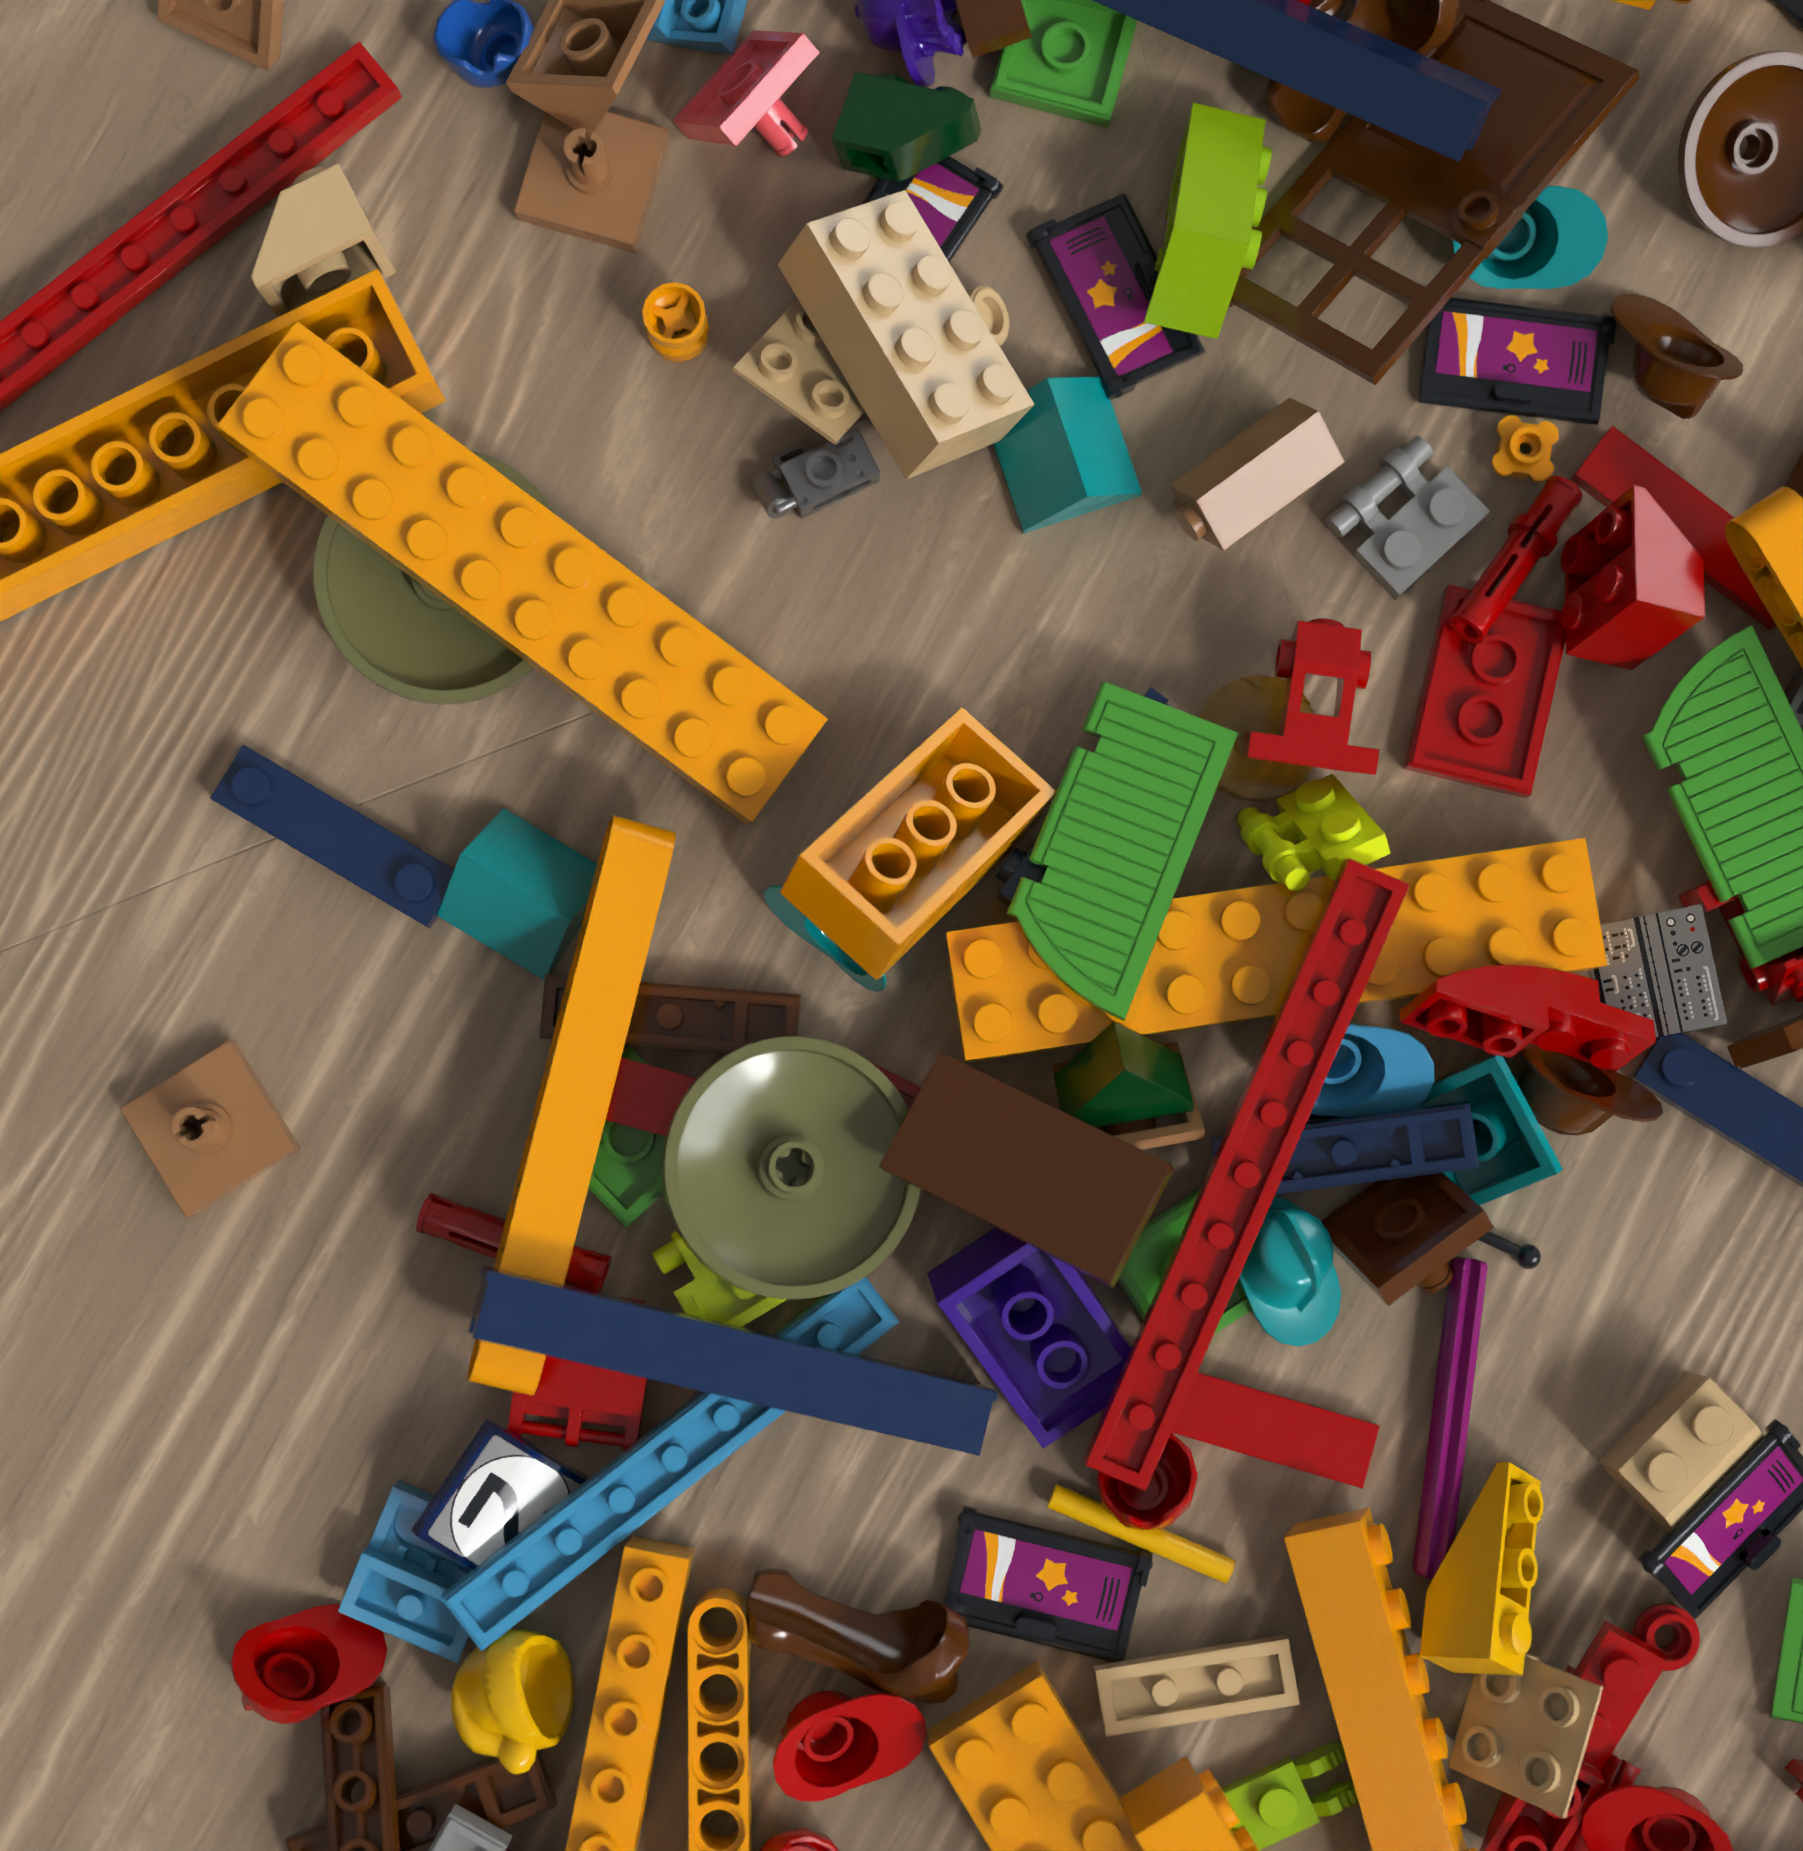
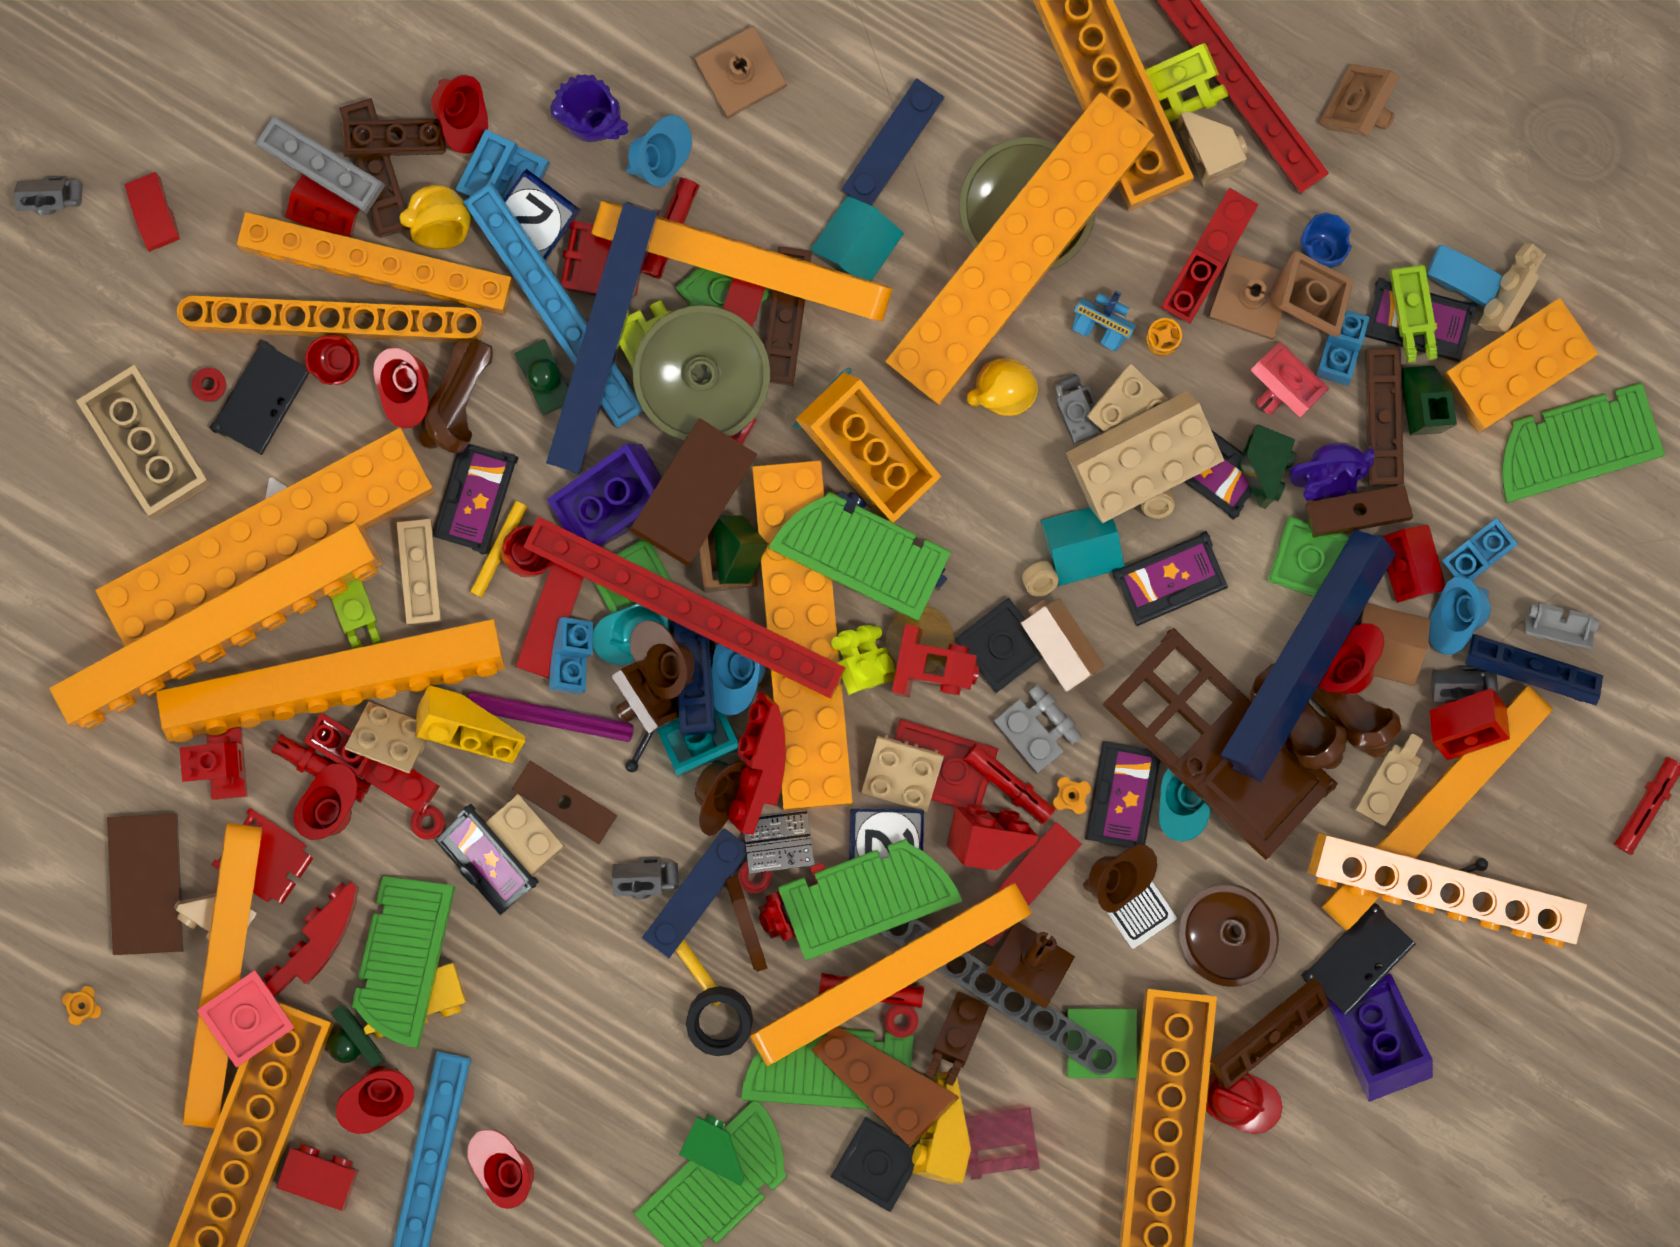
camera: 90 degrees right, 0 degrees up
(180, 304) = (1181, 73): none -> neon yellow plate
(291, 1414) = (588, 109): none -> dark purple hair
(367, 1271) = (660, 151): none -> dark azure piece
(520, 248) = (1209, 255): none -> red slope
(664, 407) = (1089, 313): none -> dark azure hips
(784, 606) = (1004, 387): none -> yellow piece
(807, 1469) = (543, 376): none -> dark green tile
(1131, 525) = (1040, 578): none -> tan tile
(1210, 220) = (1206, 626): lime wedge -> none
(1257, 591) = (1000, 645): none -> black tile
(1333, 1386) = (570, 649): none -> dark azure slope
(1351, 1207) = (661, 659): none -> reddish brown piece
(1512, 751) = (902, 773): none -> tan hinge
(1617, 787) = (881, 827): none -> slope
(1631, 1341) = (545, 792): none -> reddish brown tile
(1728, 311) = (1143, 916): none -> white sticker
(1737, 1020) = (751, 887): none -> red plate
(1740, 1221) = (644, 878): none -> flat silver piece

